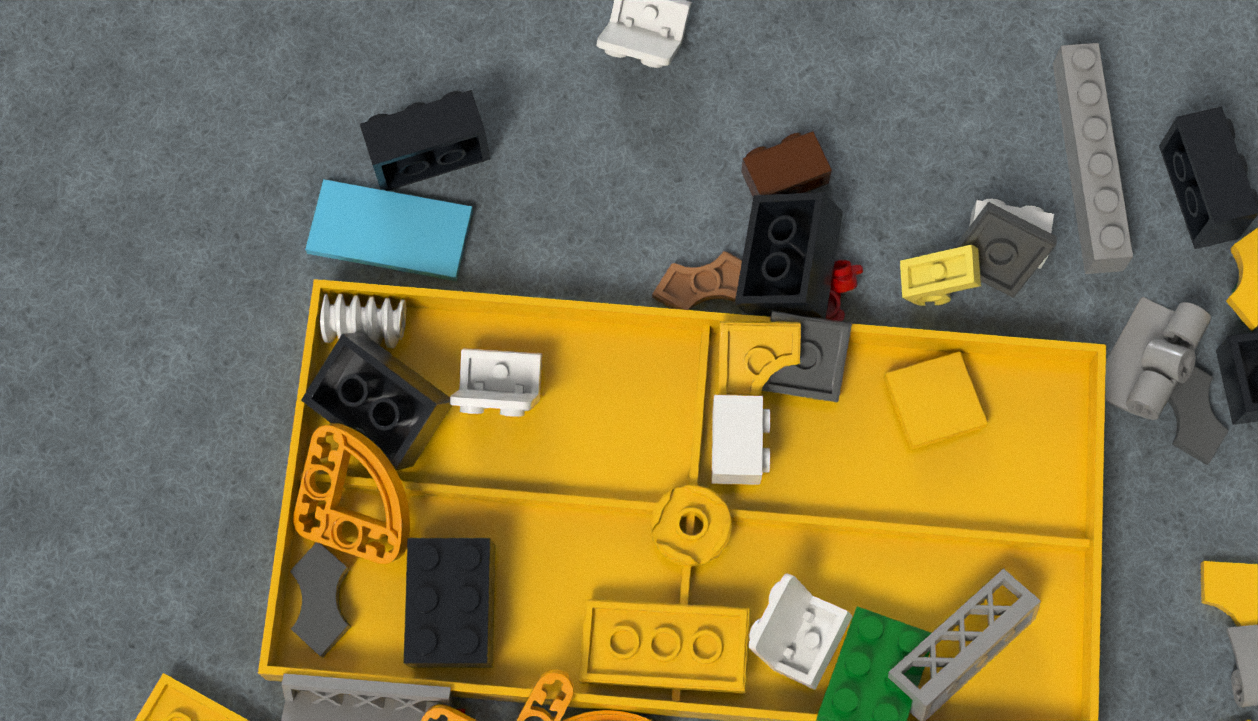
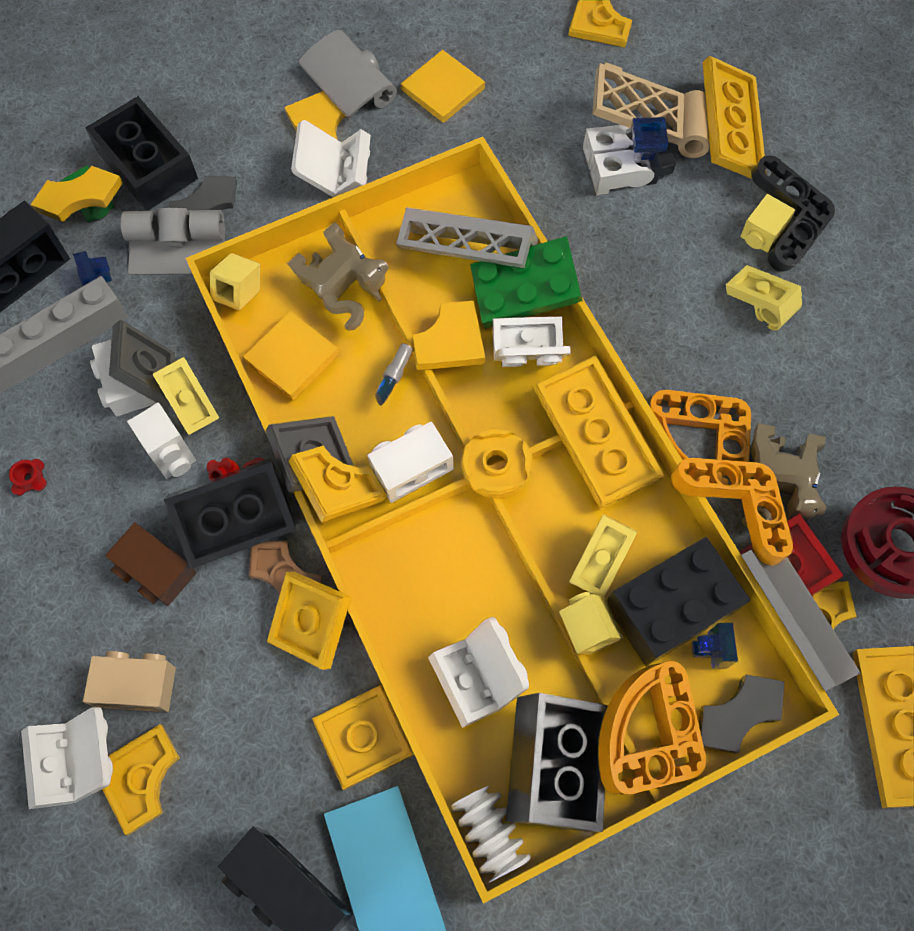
camera: 120 degrees left, 5 degrees down
(388, 614) = (718, 646): none -> tile
(478, 508) = (590, 623): none -> light yellow brick
(517, 265) = (362, 737): none -> yellow tile
(535, 565) = (603, 556): none -> light yellow plate
(600, 79) = (138, 778): none -> yellow tile
(643, 273) = (308, 620): none -> yellow tile
(682, 105) = (130, 682): none -> tan brick
(849, 482) = (393, 373): none -> light grey piece
(855, 565) = (451, 340): none -> yellow tile
(901, 230) = (162, 441): none -> white brick
(947, 95) = (23, 468): none -> red plate
(1002, 485) = (337, 272): none -> dark tan animal
(1053, 384) = (235, 281): none -> light yellow brick
(1155, 255) = (91, 268): none -> clear blue tile
(1169, 569) = (329, 163): none -> white bracket

